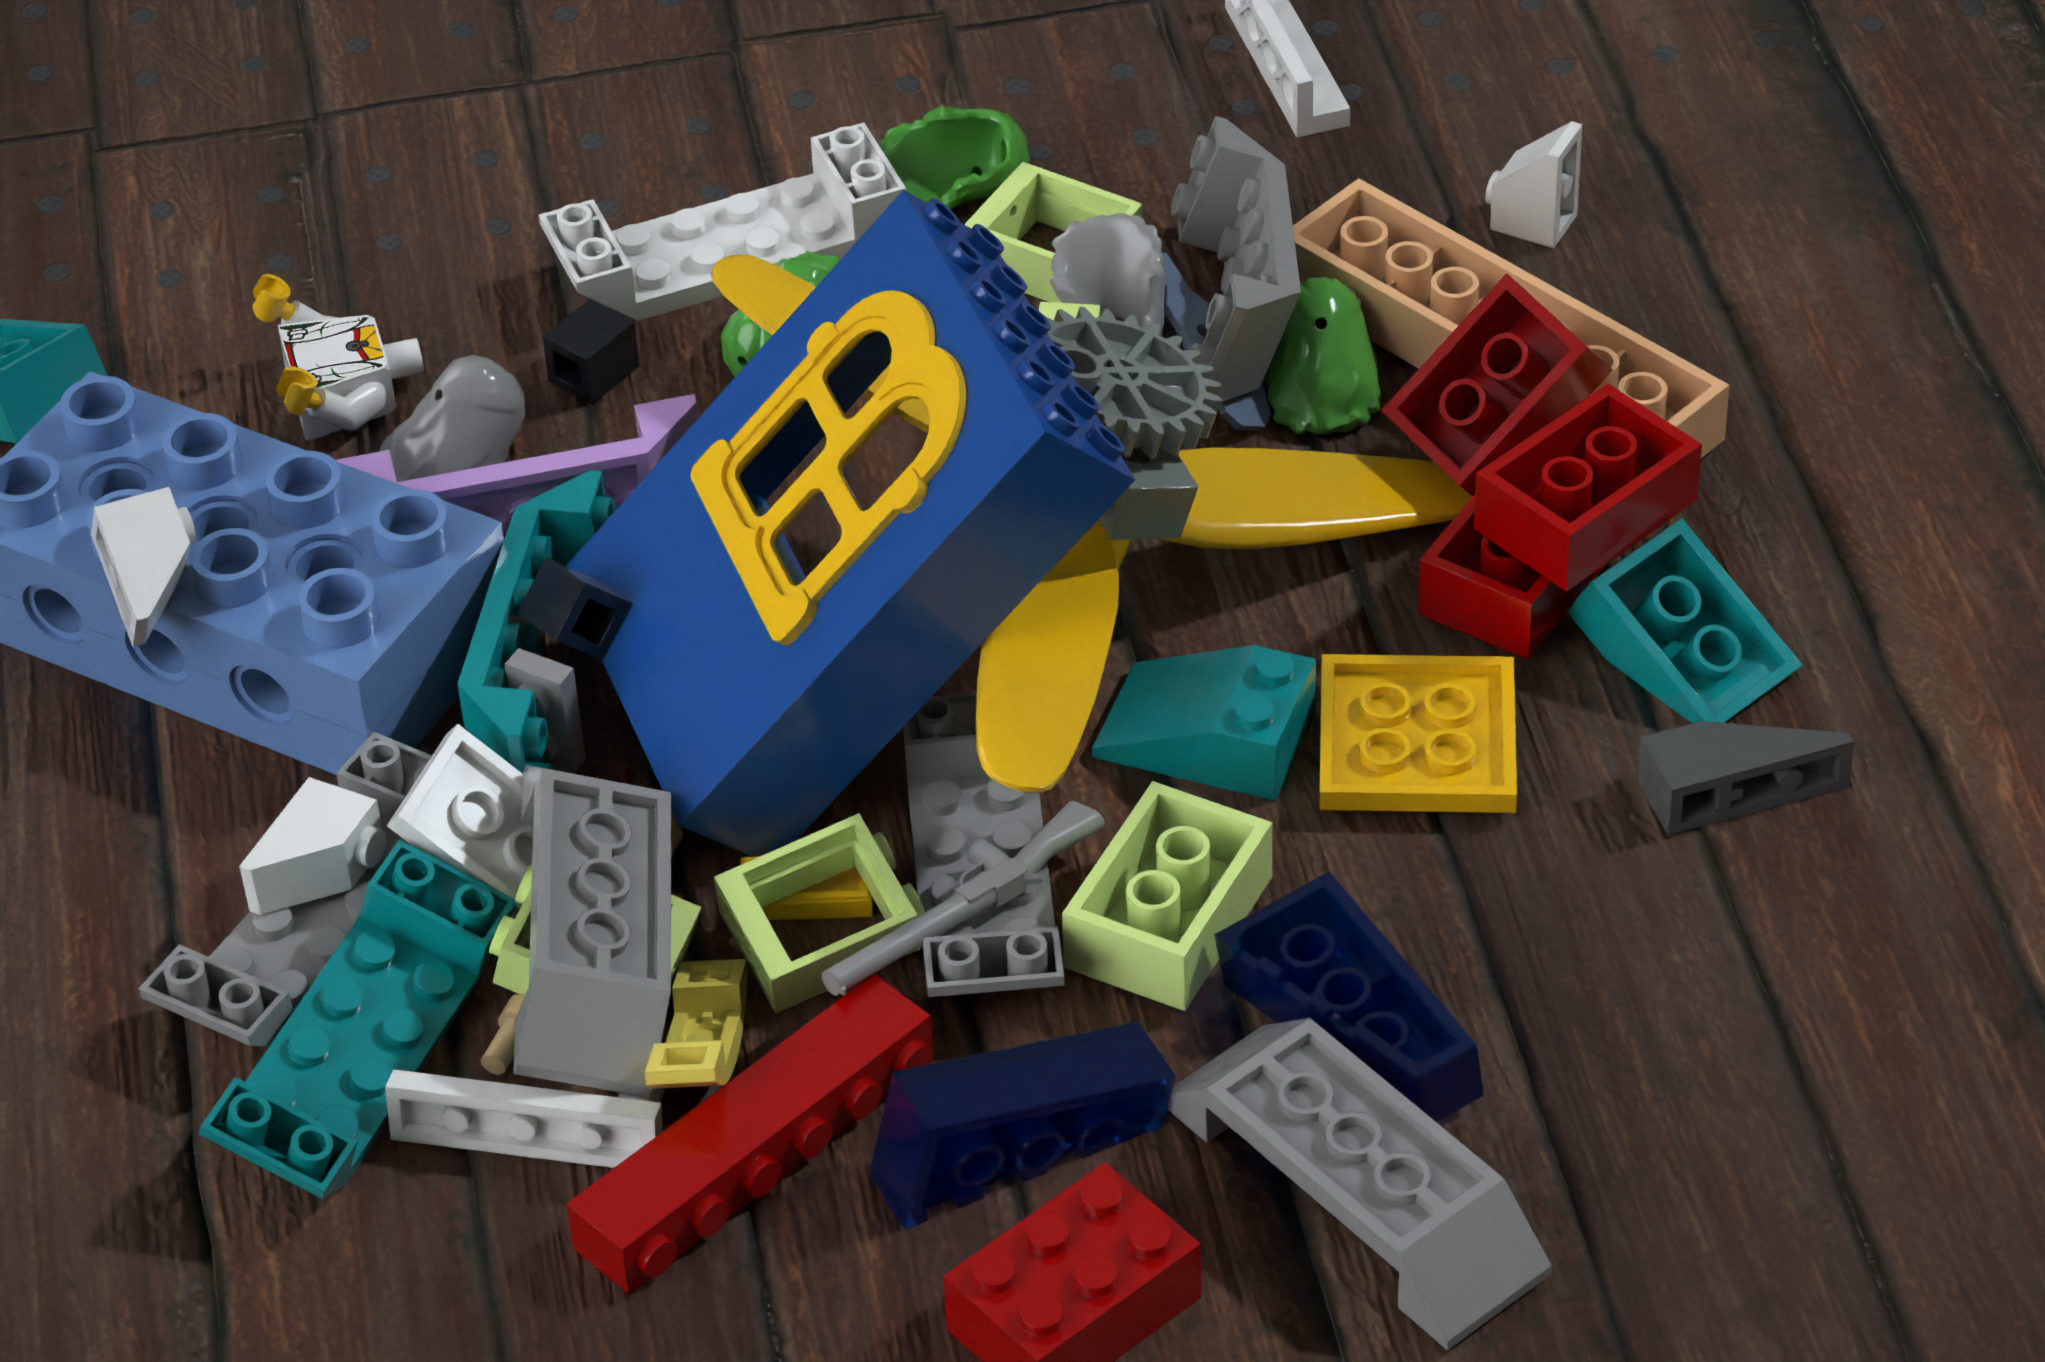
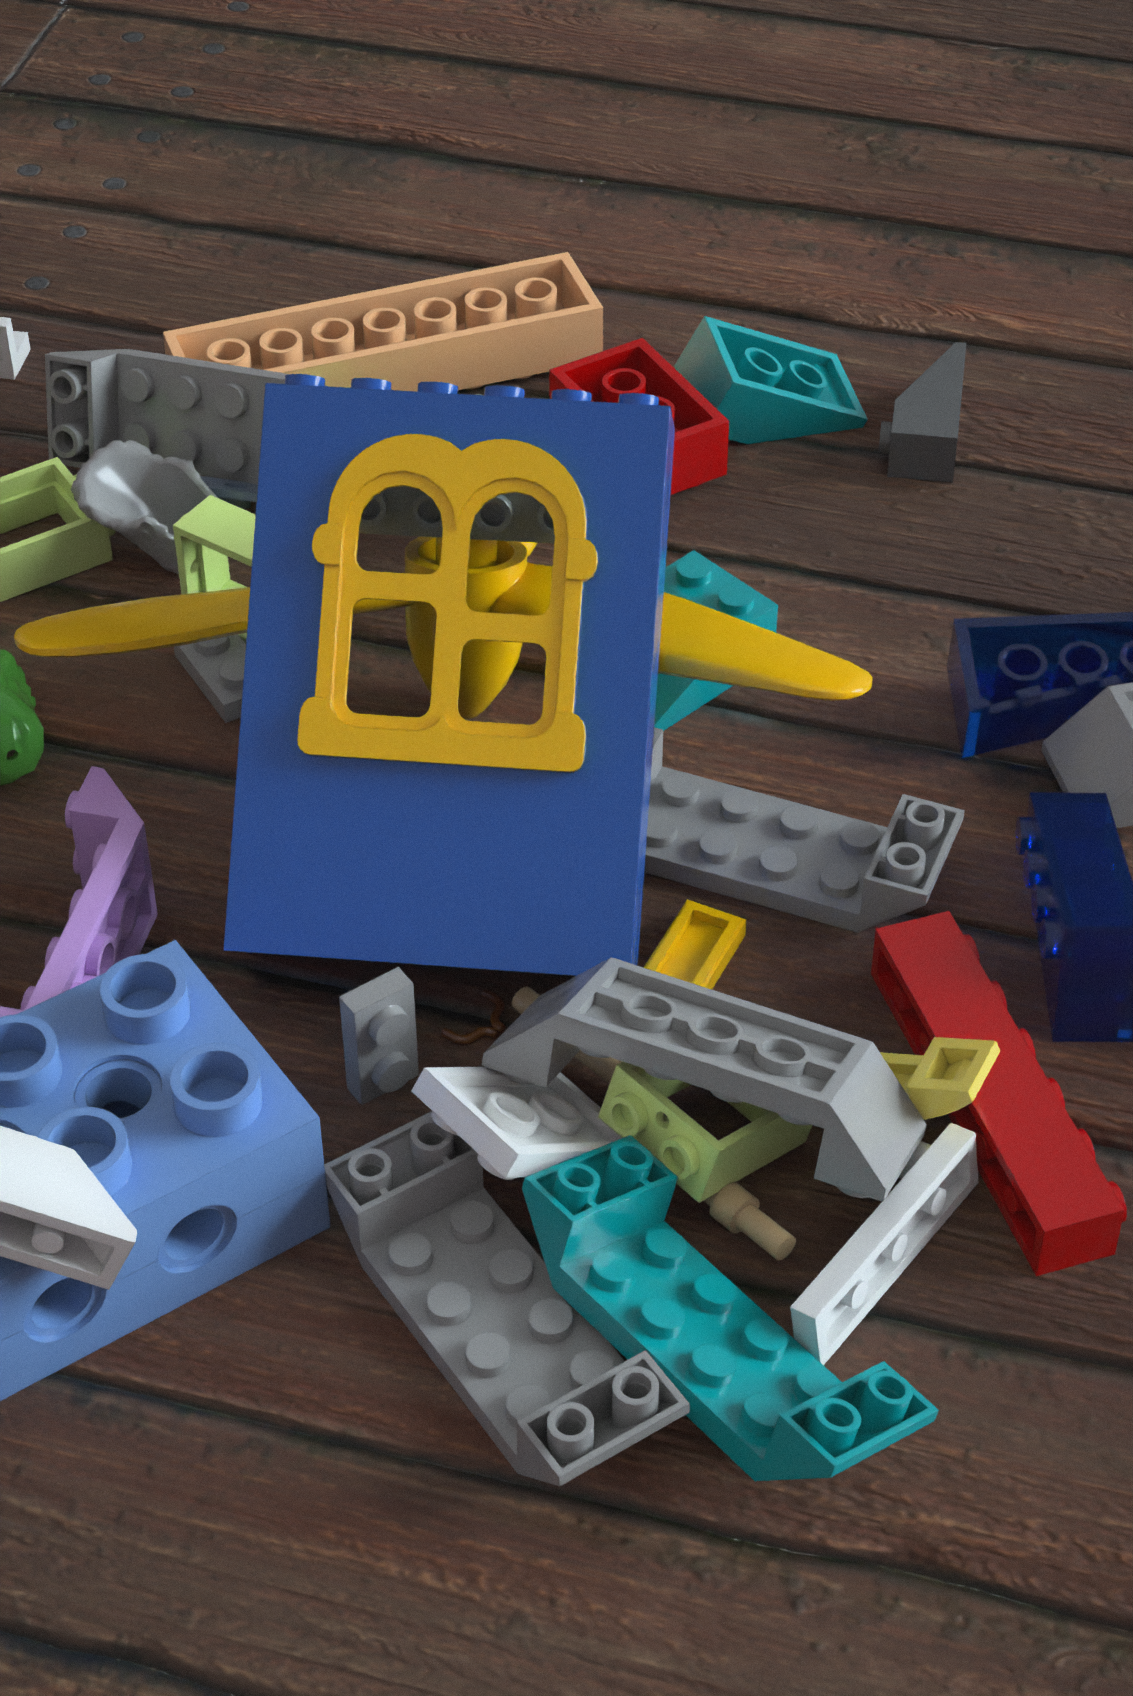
camera: 65 degrees left, 0 degrees up
(313, 848) = (443, 1264): white slope -> none
(545, 526) = (346, 1077): teal slope -> none
(574, 608) = (312, 941): black brick -> none
(793, 868) = (790, 896): yellowish green window -> none
(999, 883) = (811, 820): light grey piece -> none
(1163, 893) = (895, 738): yellowish green brick -> none
(1418, 733) = (784, 545): yellow plate -> none
(1494, 383) = (492, 323): red brick -> none
(1538, 188) = (235, 265): white slope -> none
(1587, 487) = (664, 328): red brick -> none

